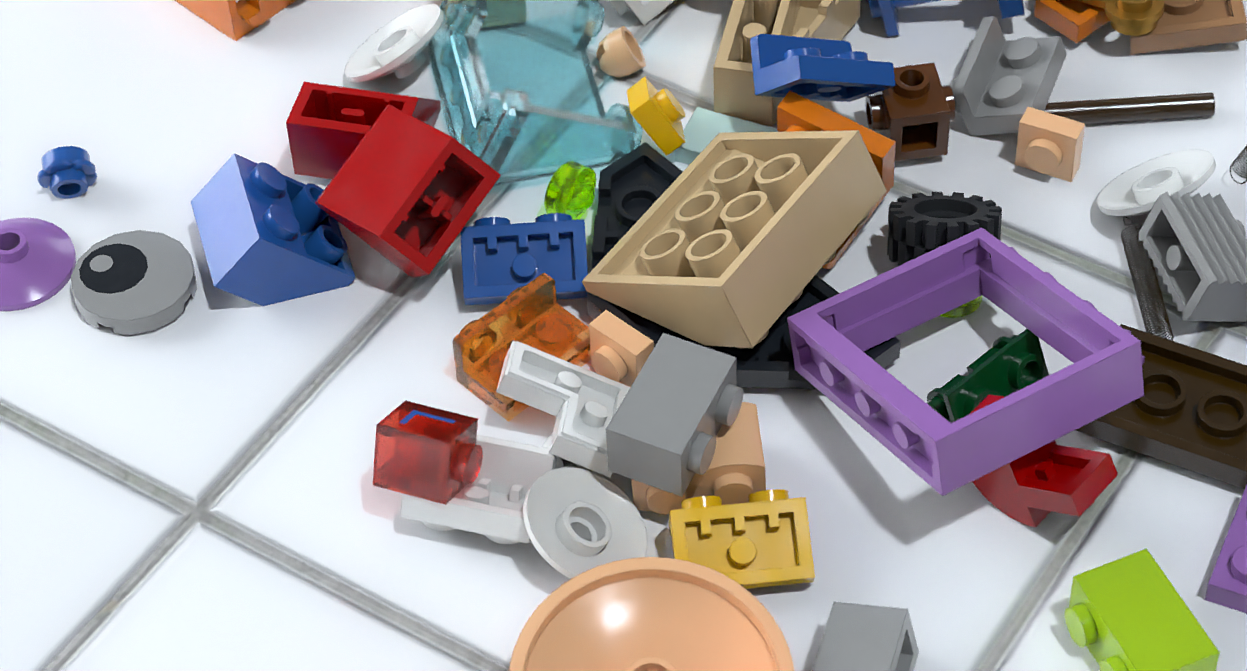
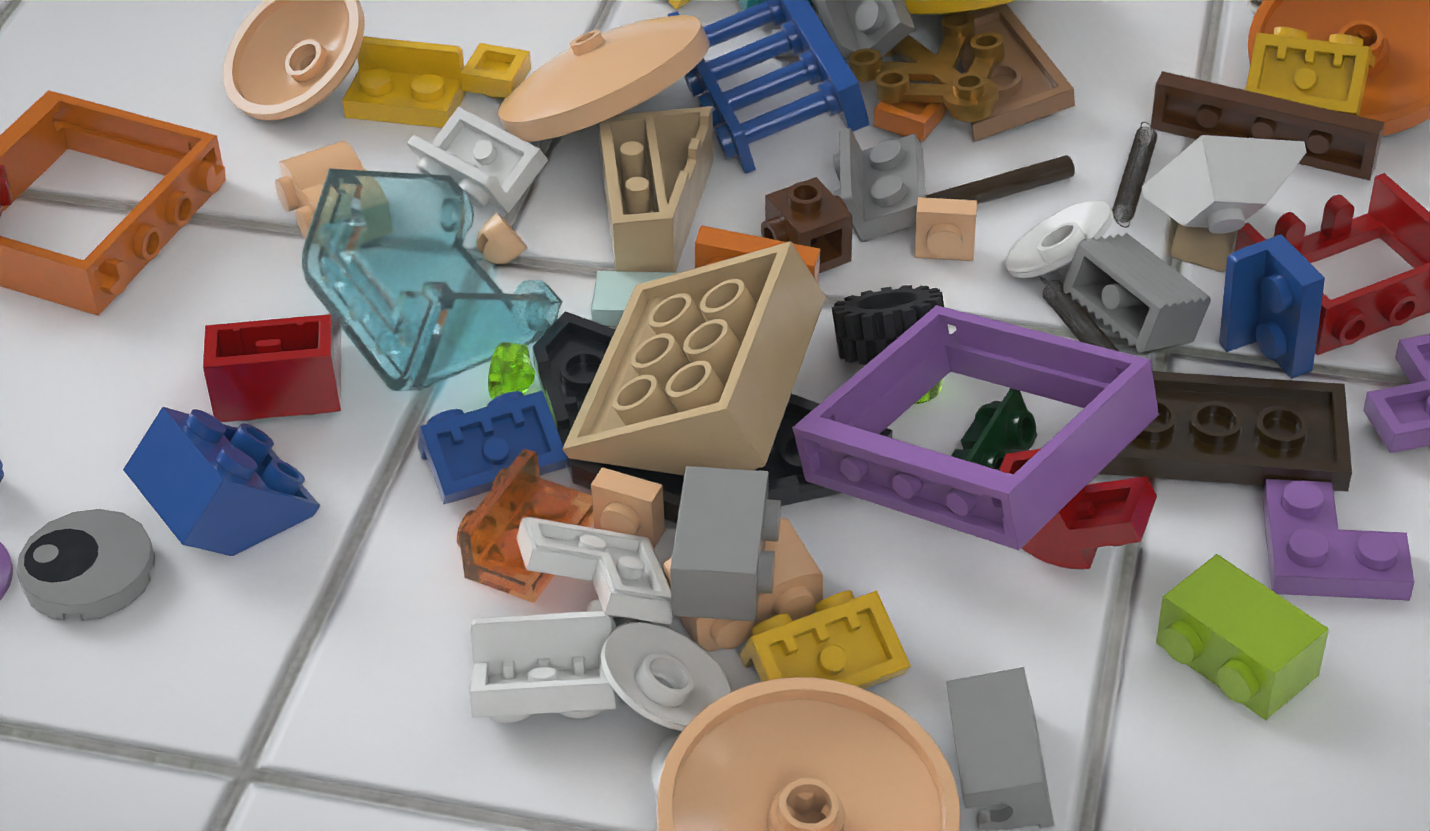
camera: 20 degrees left, 5 degrees down
(396, 45) = (274, 279): white dish -> none
(407, 190) = (357, 403): red slope -> none
(426, 452) = (483, 644): clear red brick -> none
(657, 114) = (568, 281): yellow plate -> none
(816, 69) = (716, 202): blue bracket -> none

